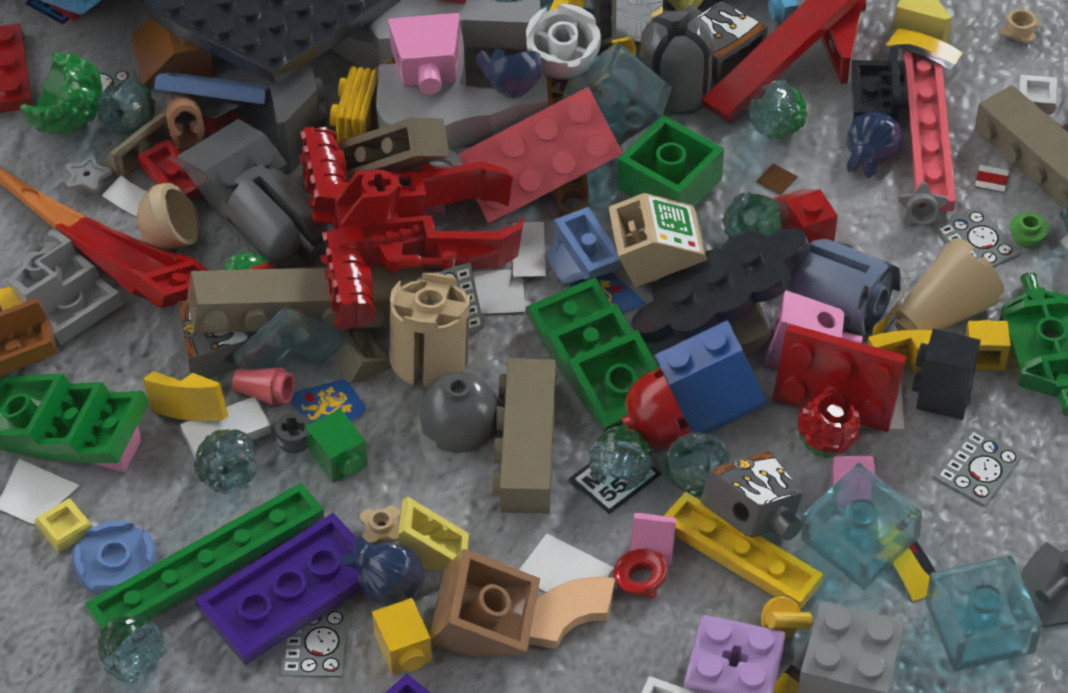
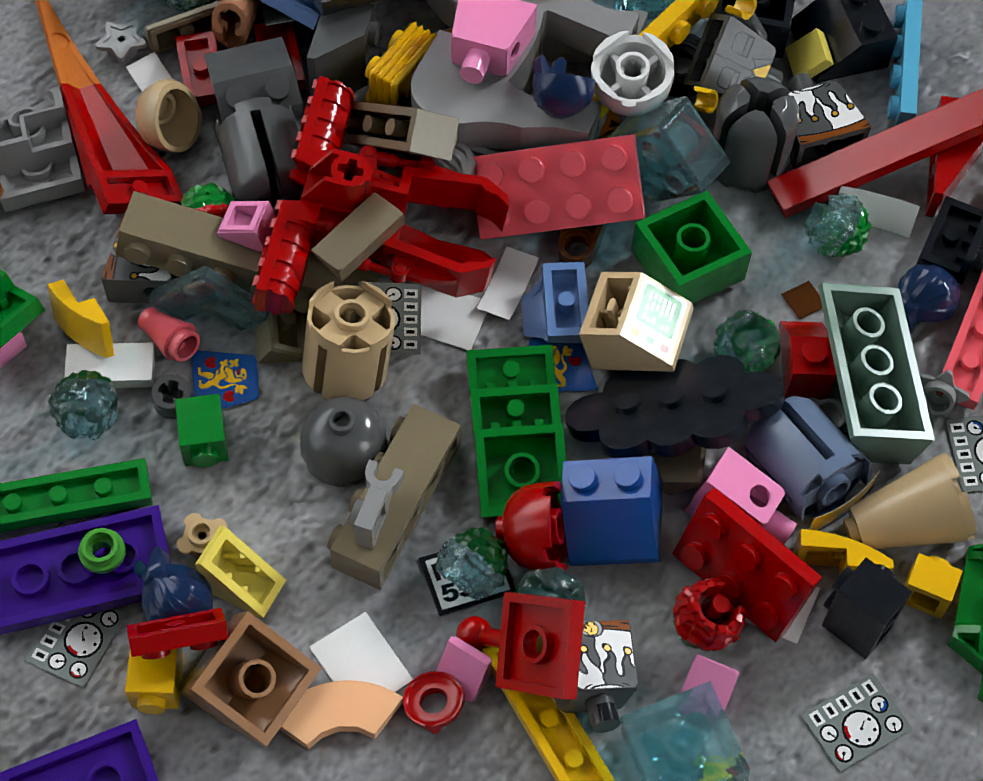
camera: 20 degrees right, 10 degrees up
(300, 265) = (247, 223): none -> bright pink slope
(308, 550) = (98, 539): none -> bright green plate
(405, 236) = (359, 236): none -> dark tan slope
(428, 581) = (157, 637): none -> red plate
(521, 444) = (370, 513): none -> light grey plate
(689, 477) = (519, 664): none -> red plate
(813, 88) = (885, 211): none -> white sticker
(870, 201) = (876, 372): none -> sand green slope

